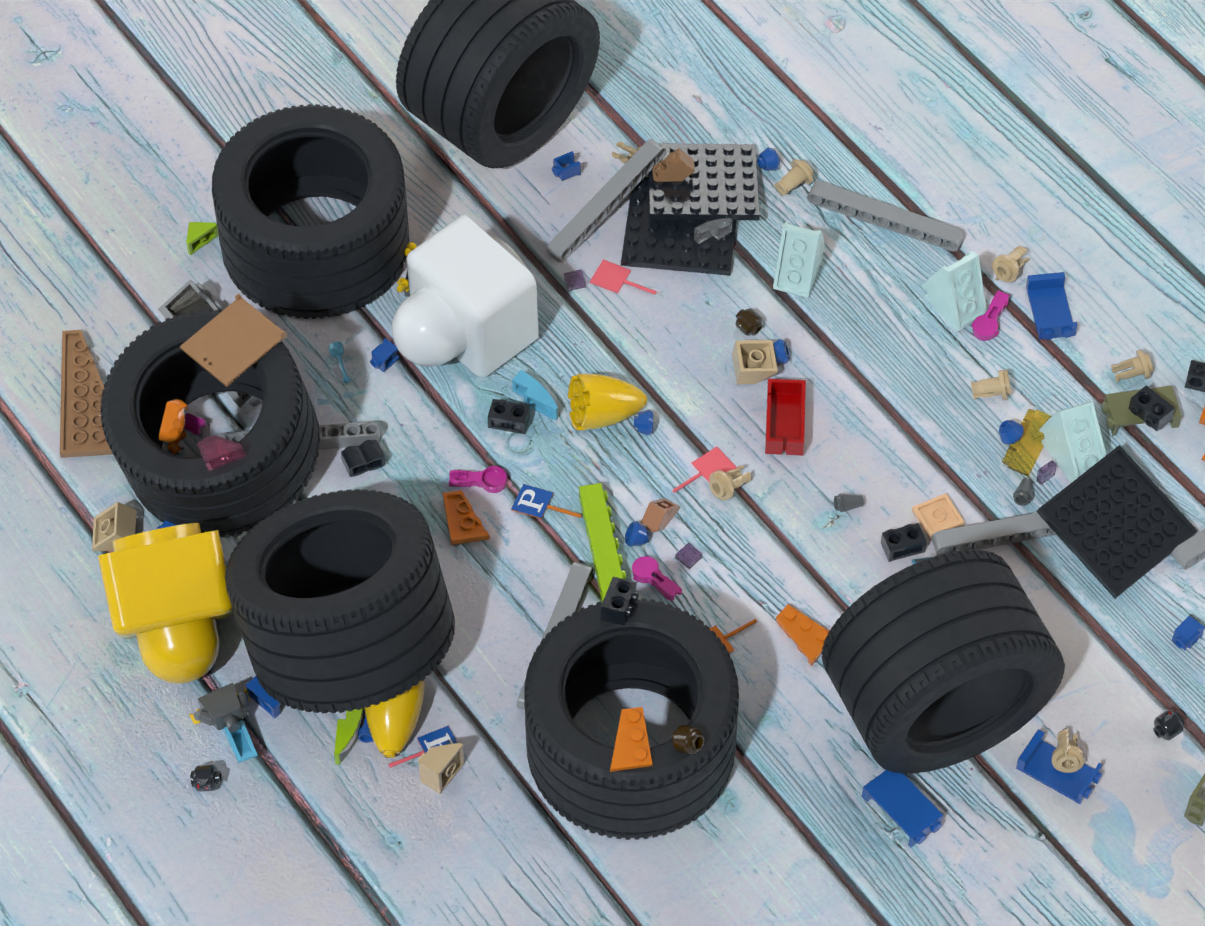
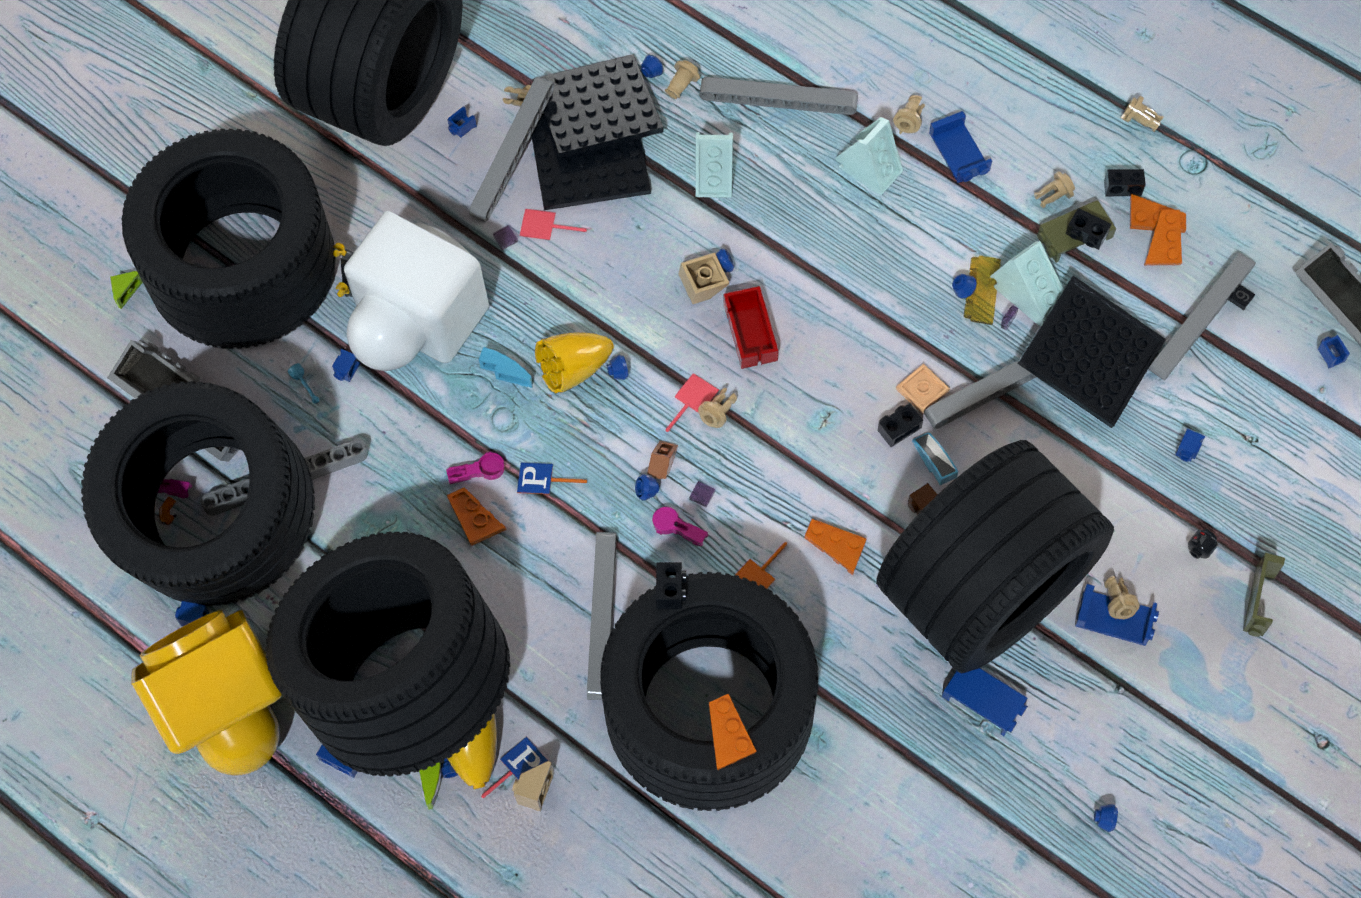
camera: 15 degrees left, 10 degrees up
(80, 400) = (57, 491): medium nougat wing -> none
(111, 525) = (133, 622): tan slope -> none
(173, 420) = (164, 515): orange piece -> none
(205, 778) = (305, 864): black head -> none
(219, 451) = (221, 536): clear pink slope -> none
(222, 708) = (301, 788): dark grey torso -> none
(233, 341) = (200, 413): medium nougat door -> none
(240, 743) = (323, 810): medium azure slope -> none
(363, 458) = (357, 478): black brick -> none
(508, 419) = (485, 401): black brick -> none
(600, 535) = (621, 513): lime brick -> none
(674, 167) = (567, 100): medium nougat slope -> none
(687, 739) = (783, 716): dark brown head -> none
(716, 228) = (626, 150): clear slope -> none
(749, 322) = (684, 237): dark brown head -> none
(847, 502) = (834, 398): dark grey cone -> none
(986, 326) = (906, 183): dark pink piece -> none
(992, 386) = (933, 244): tan piece -> none
(1023, 493) = (994, 343): dark grey cone -> none

